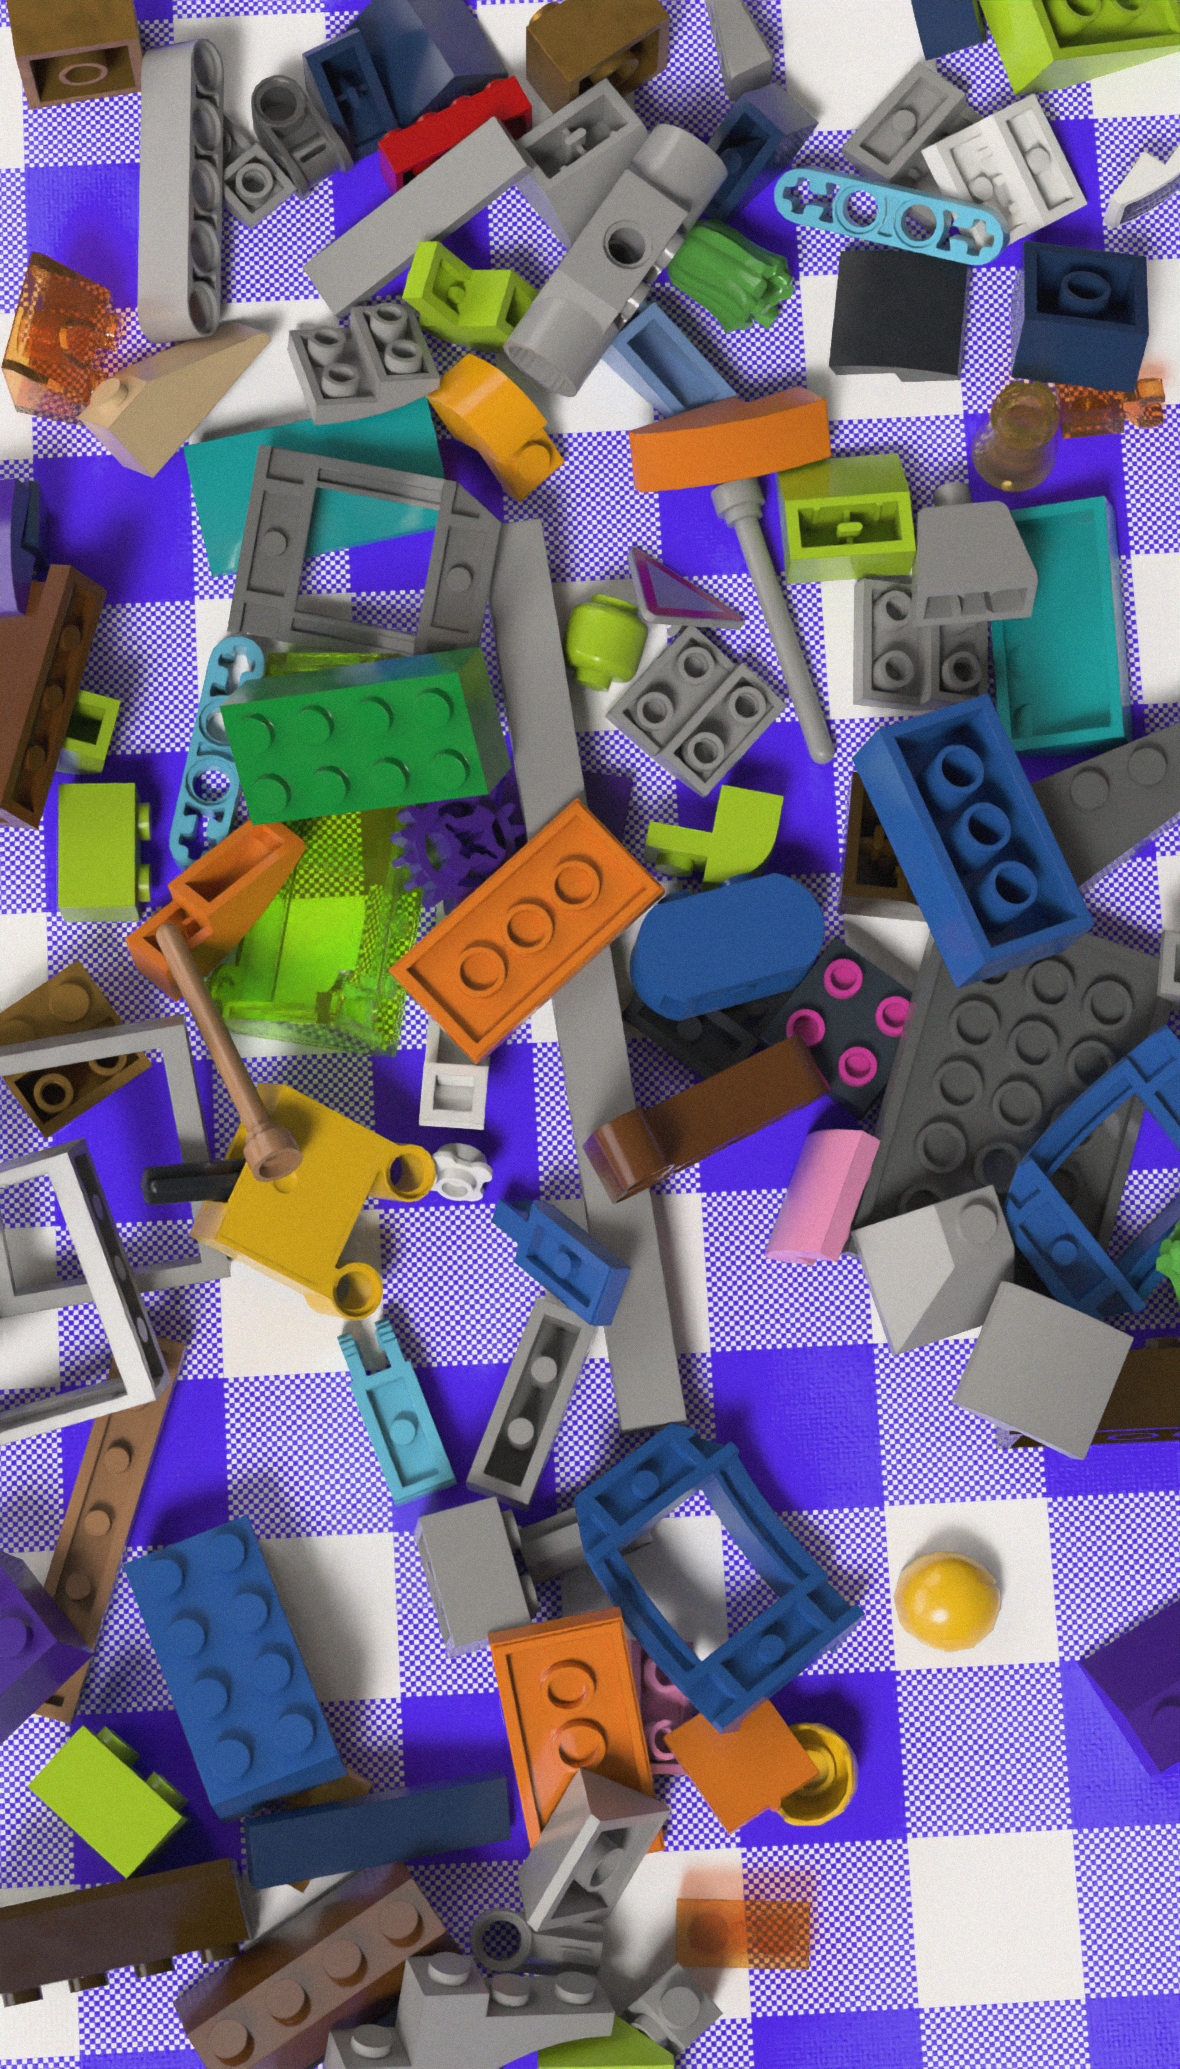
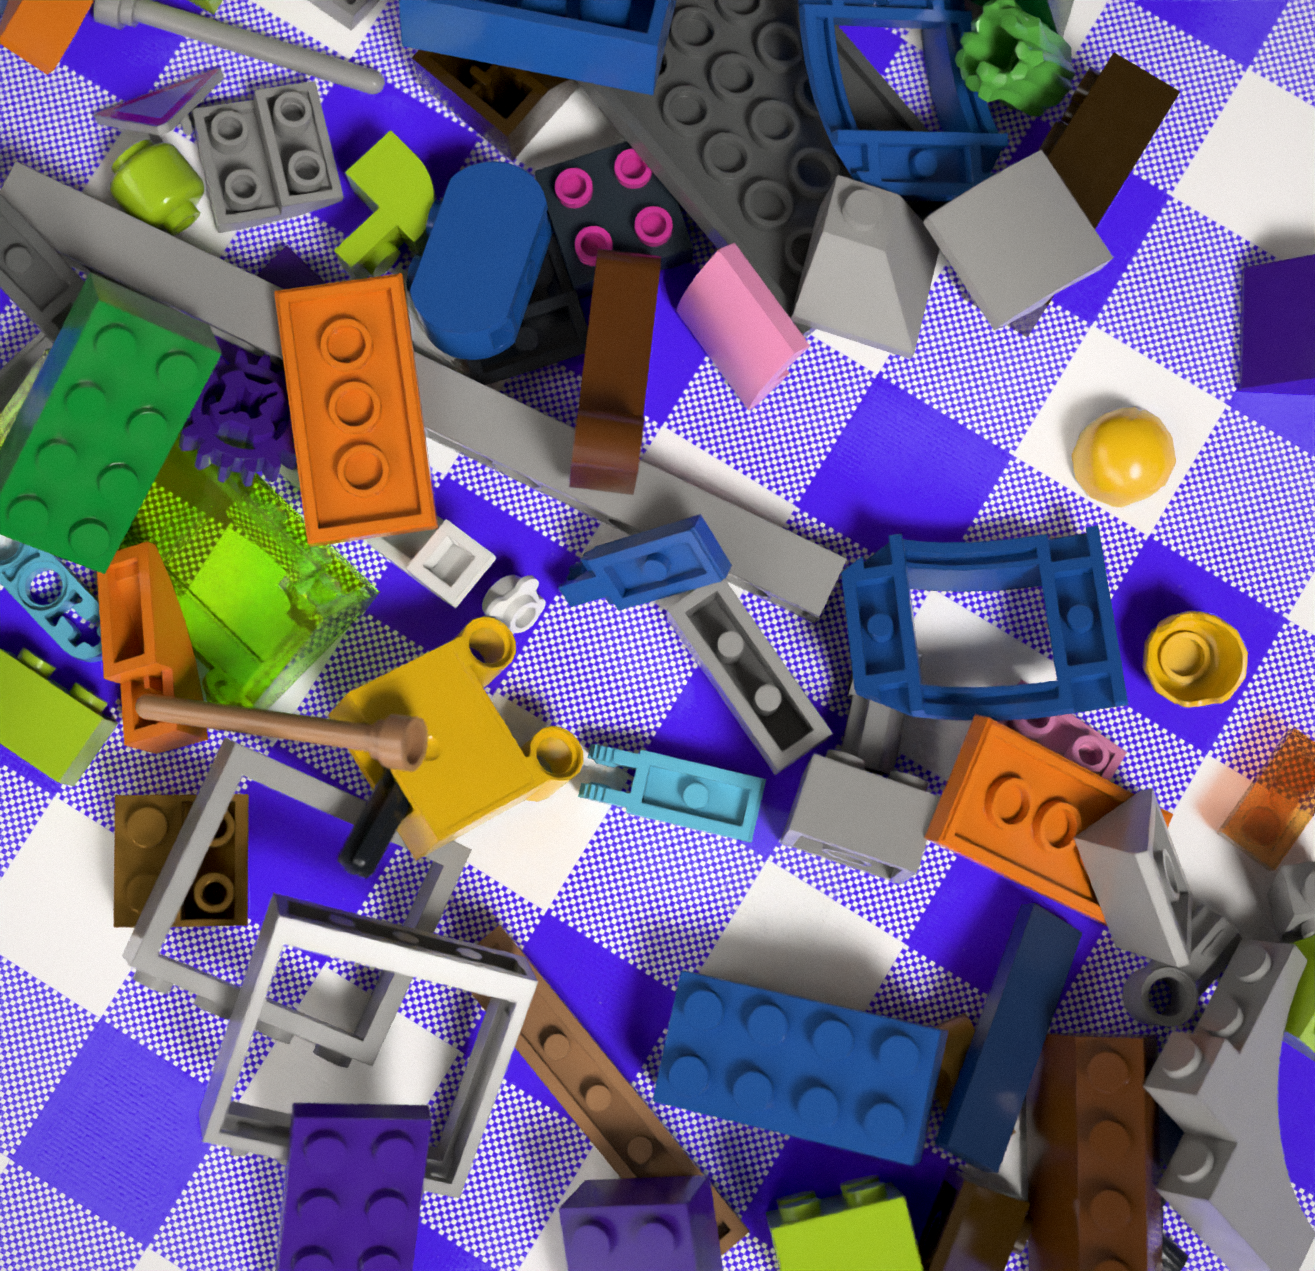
camera: 50 degrees left, 5 degrees up
(743, 1769) = (1162, 710): orange piece -> none

